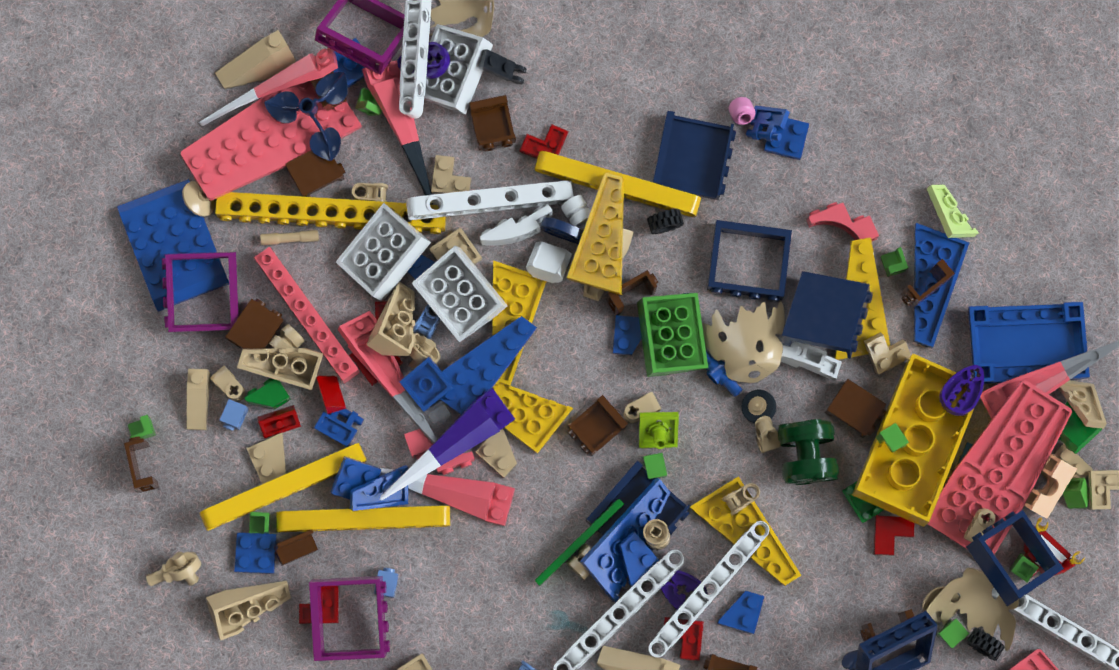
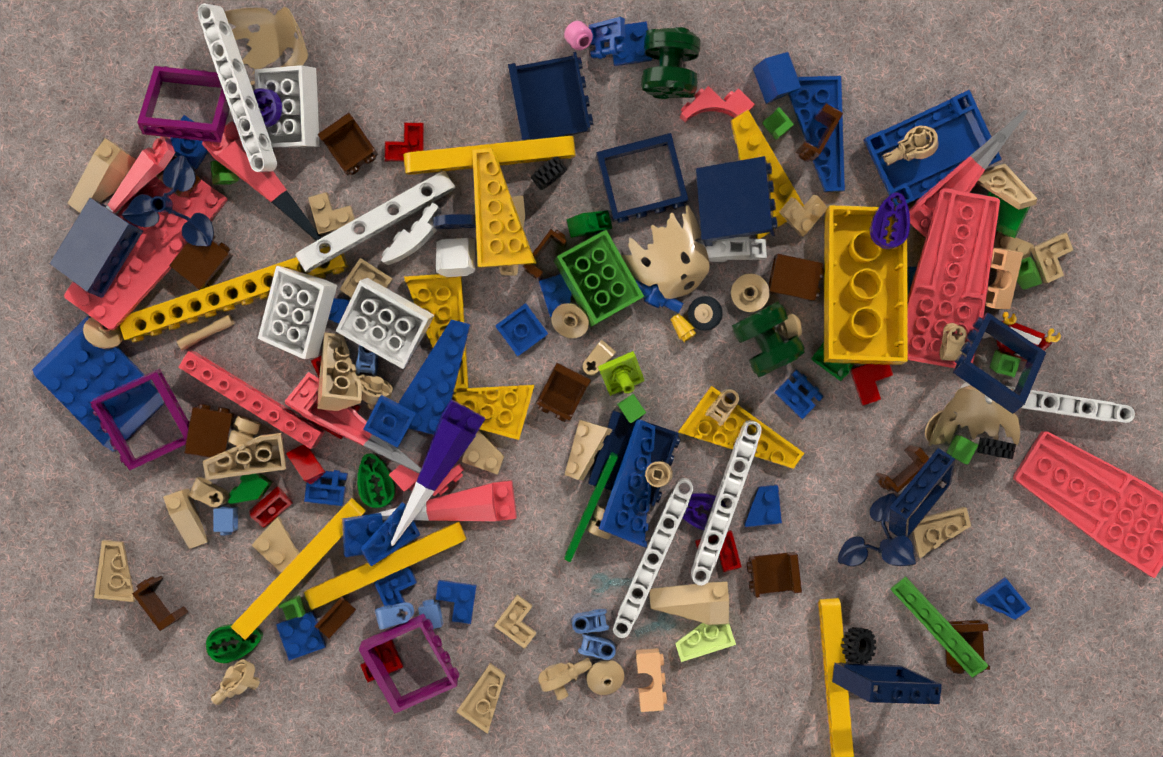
camera: 15 degrees left, 10 degrees up
(107, 422) = (113, 573): none -> tan wing
(142, 428) = (148, 566): bright green panel -> none
(185, 543) = (232, 652): none -> green piece
(228, 121) = (95, 248): none -> panel
(239, 606) = (304, 693): tan wedge -> none
(350, 565) = (391, 614): none -> medium blue piece
(359, 541) = (391, 586): none -> blue plate
(371, 191) = (265, 258): tan piece -> none
(397, 441) = (365, 487): none -> green piece
(422, 577) = (463, 596): none -> blue plate
(459, 622) = (511, 622): none -> tan plate
(501, 66) = (332, 86): black hinge -> none
(536, 652) = (591, 621): none -> medium blue piece
(576, 210) = (461, 196): white wheel -> none
(581, 353) = (521, 329): none -> blue plate
(598, 482) = (584, 448): none -> tan wing
(625, 368) = (565, 325): none -> tan dish
(636, 557) = (649, 501): blue wing -> none
(683, 281) = (589, 223): none -> green slope
(733, 414) = (682, 327): none -> yellow cone
(766, 434) = (722, 338): tan piece -> none
(807, 395) = (743, 300): none -> tan dish
(812, 520) = (794, 398): none -> blue plate
(821, 156) = (671, 48): none -> dark green piece
(834, 450) = (790, 327): none -> tan cone
(893, 438) = (844, 296): bright green panel -> none
(909, 219) = (776, 77): none -> blue slope
(952, 220) = (814, 58): yellowish green wing -> none
(1012, 331) = (914, 145): none -> tan pin

